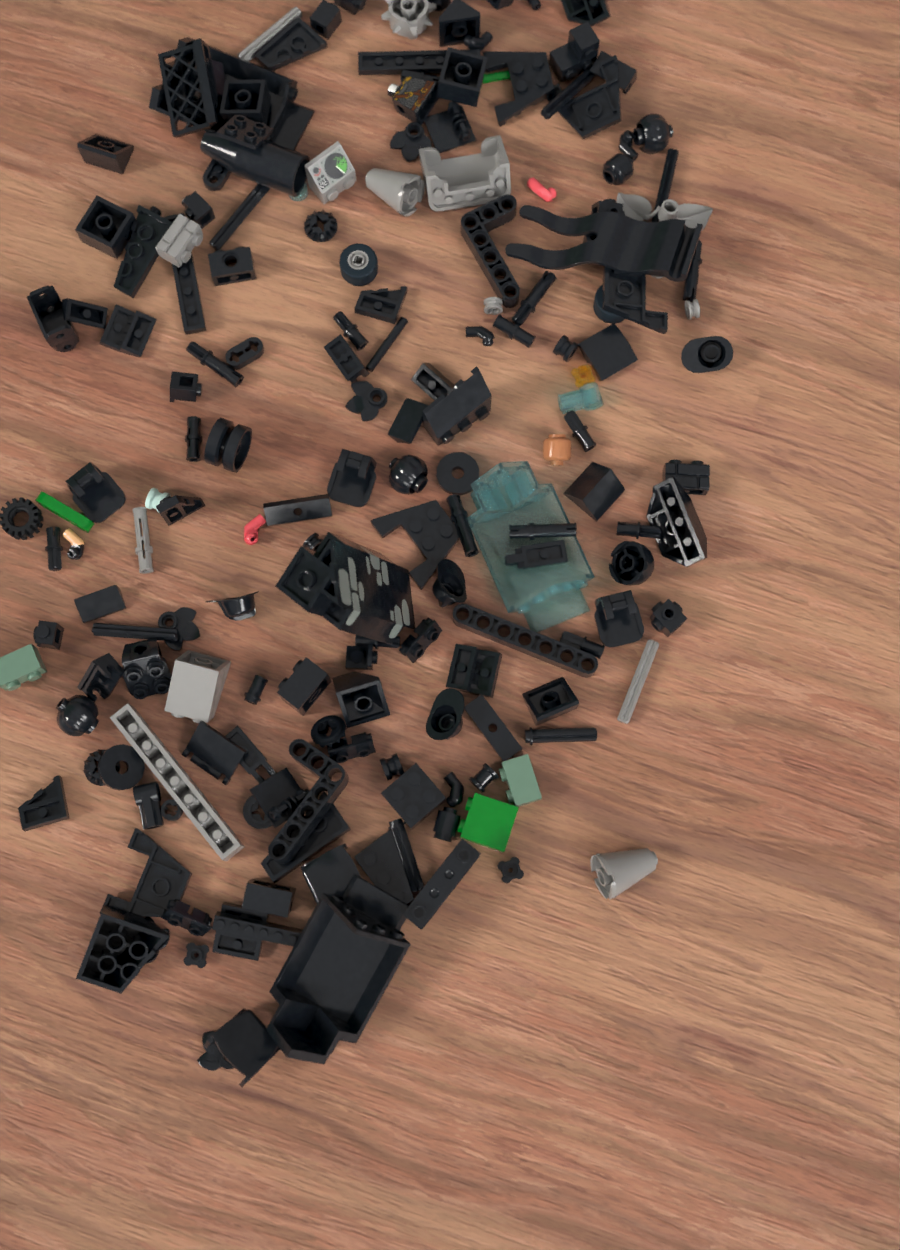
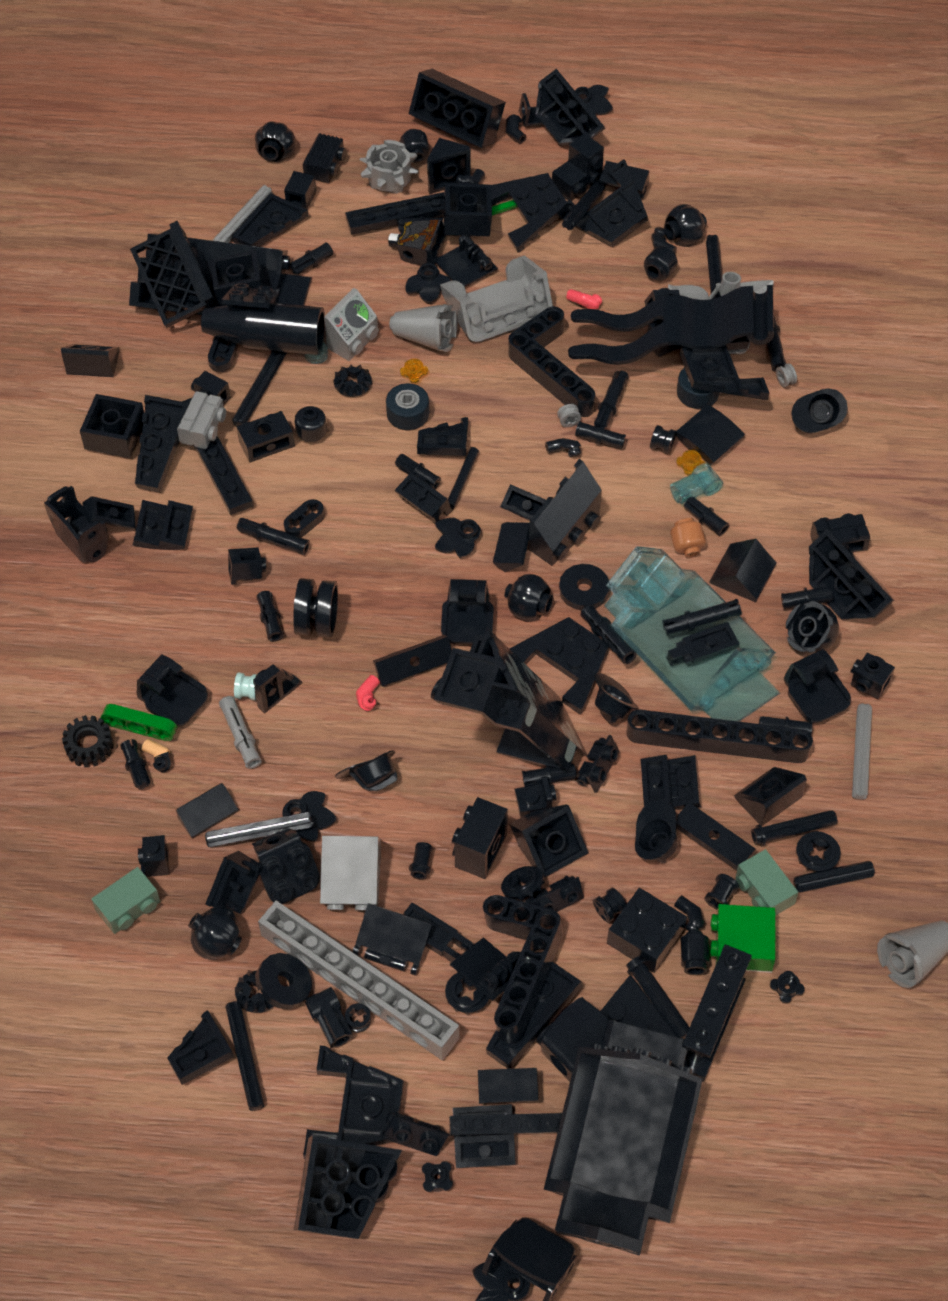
camera: 15 degrees left, 20 degrees down
(78, 819) = (244, 1056): none -> black axle
(272, 263) = (310, 424): none -> black head
(317, 93) = (311, 258): none -> black axle
(374, 223) = (413, 370): none -> clear yellow plate
(575, 785) = (834, 876): none -> black axle
(578, 752) = (820, 841): none -> black gear

